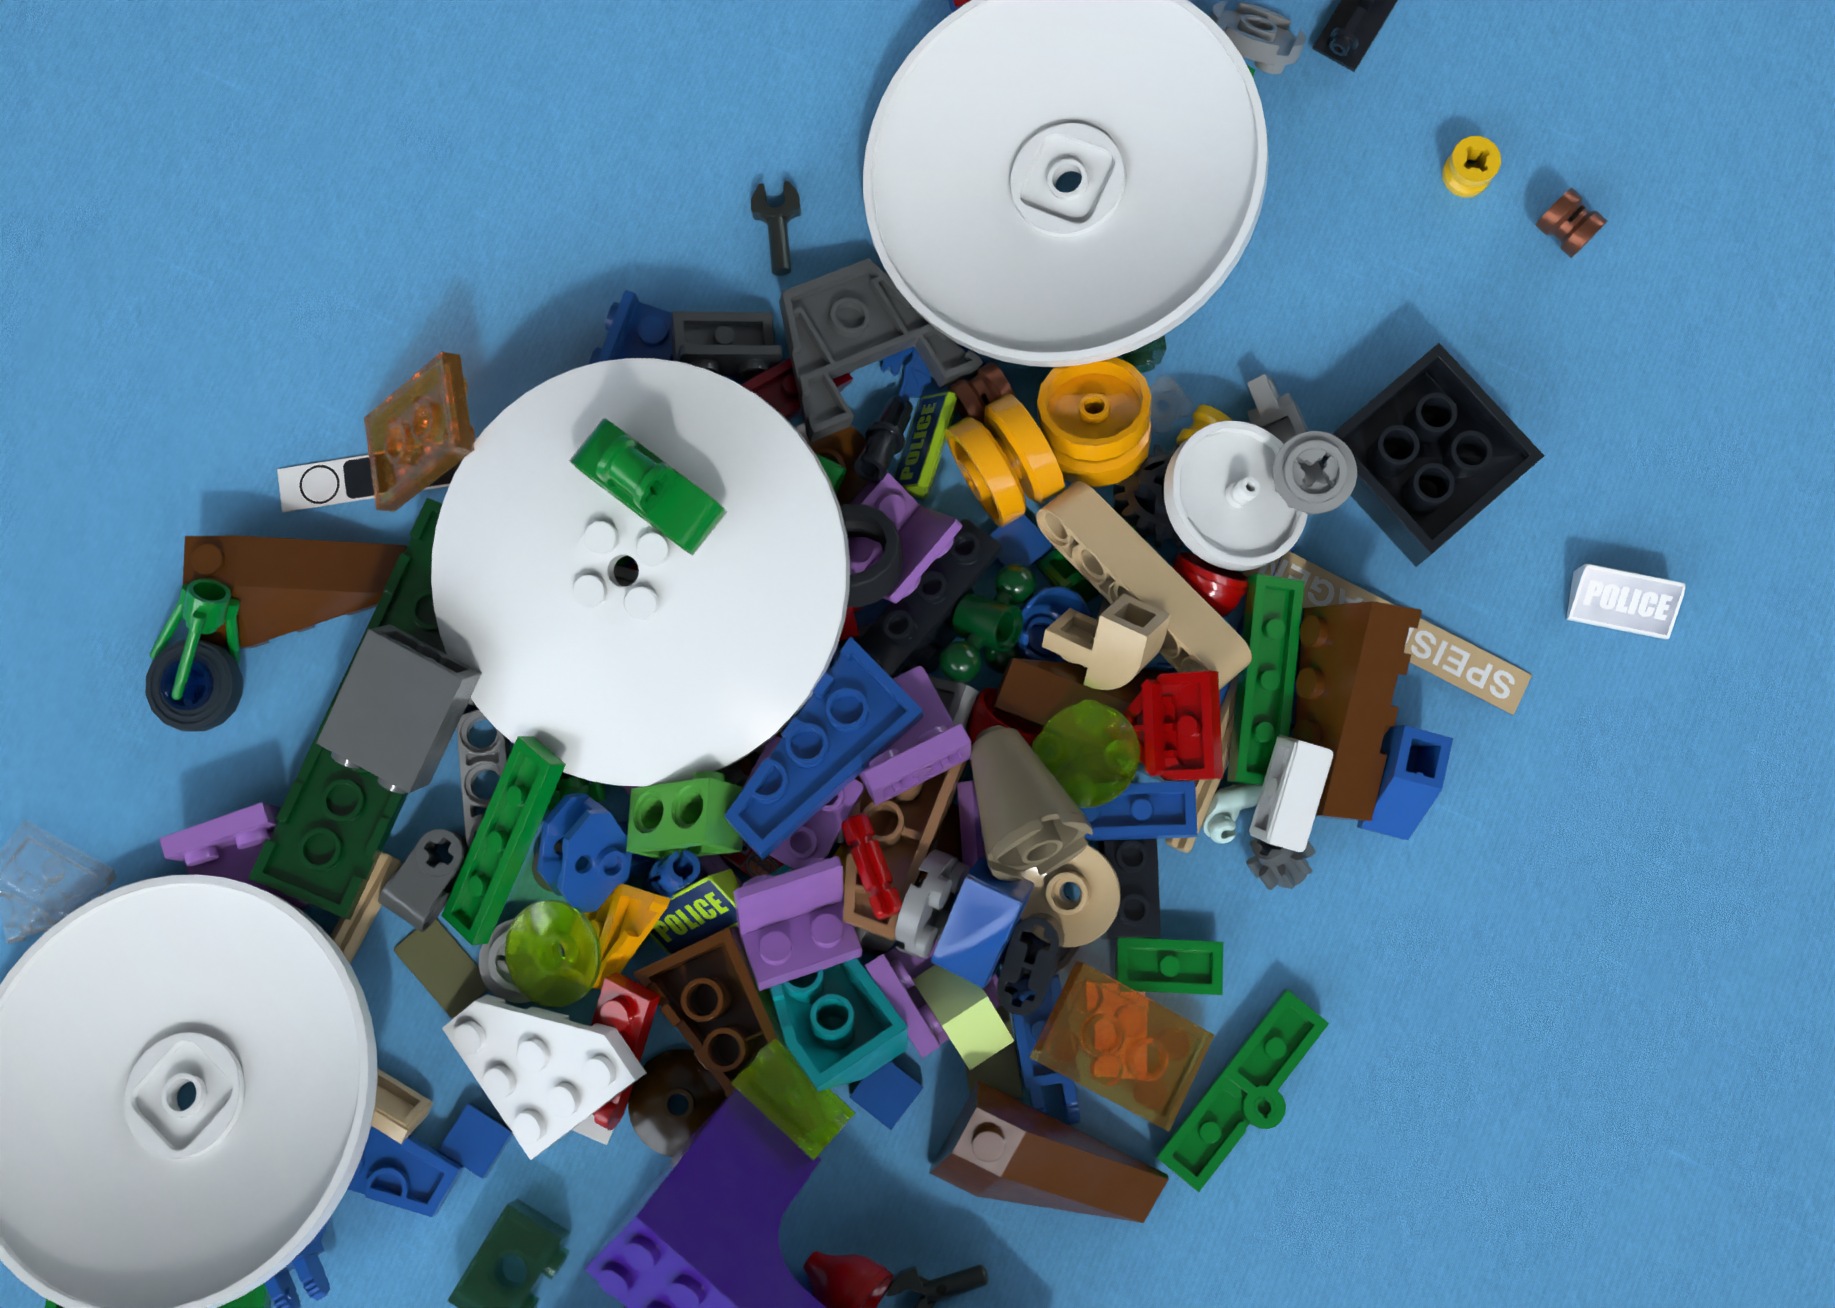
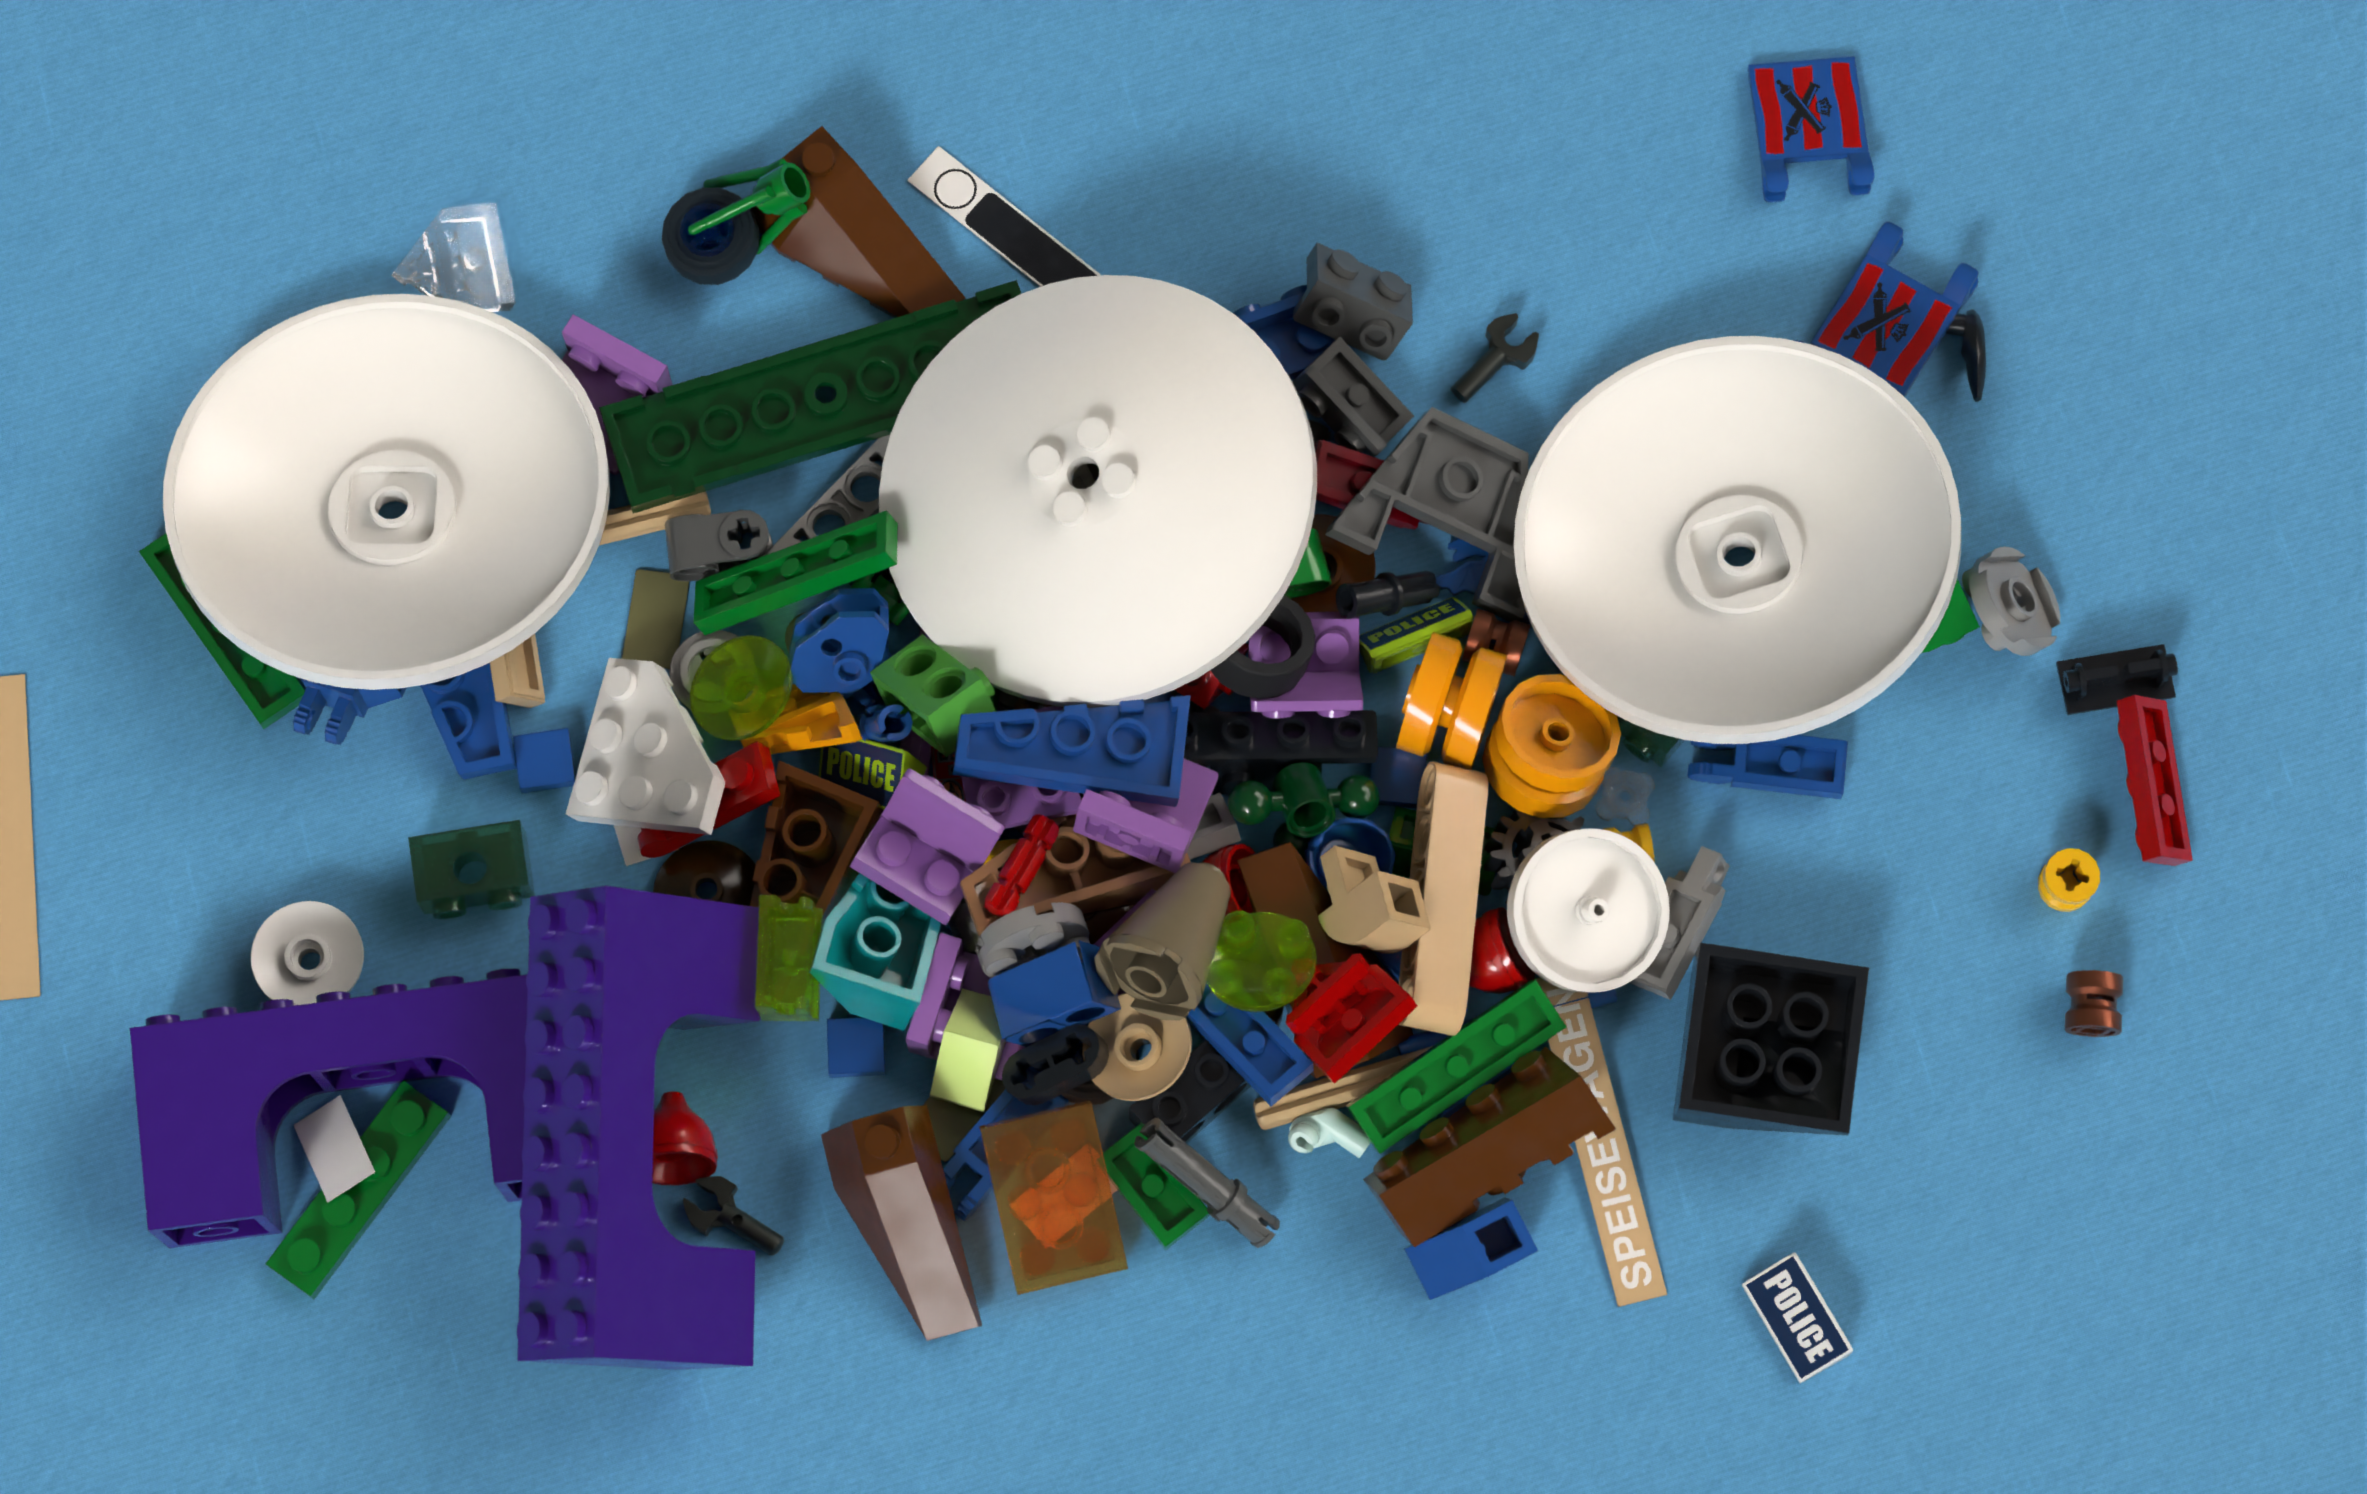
camera: 50 degrees right, 5 degrees down
(397, 709) = (828, 403): dark grey brick -> none
(419, 432) = (1061, 228): clear orange plate -> none
(648, 486) = (1161, 432): green piece -> none
(656, 281) = (1354, 302): none -> dark grey bracket
(1223, 924) = (1224, 1197): none -> dark grey pin
(1243, 1091) = (1102, 1330): green hinge -> none
(1255, 268) = (1783, 765): none -> blue hinge
(1279, 865) = (1321, 1201): dark grey gear -> none
(1291, 793) = (1375, 1156): white slope -> none
(1339, 471) = (1639, 938): light grey gear -> none
(1449, 55) = (2154, 780): none -> red plate

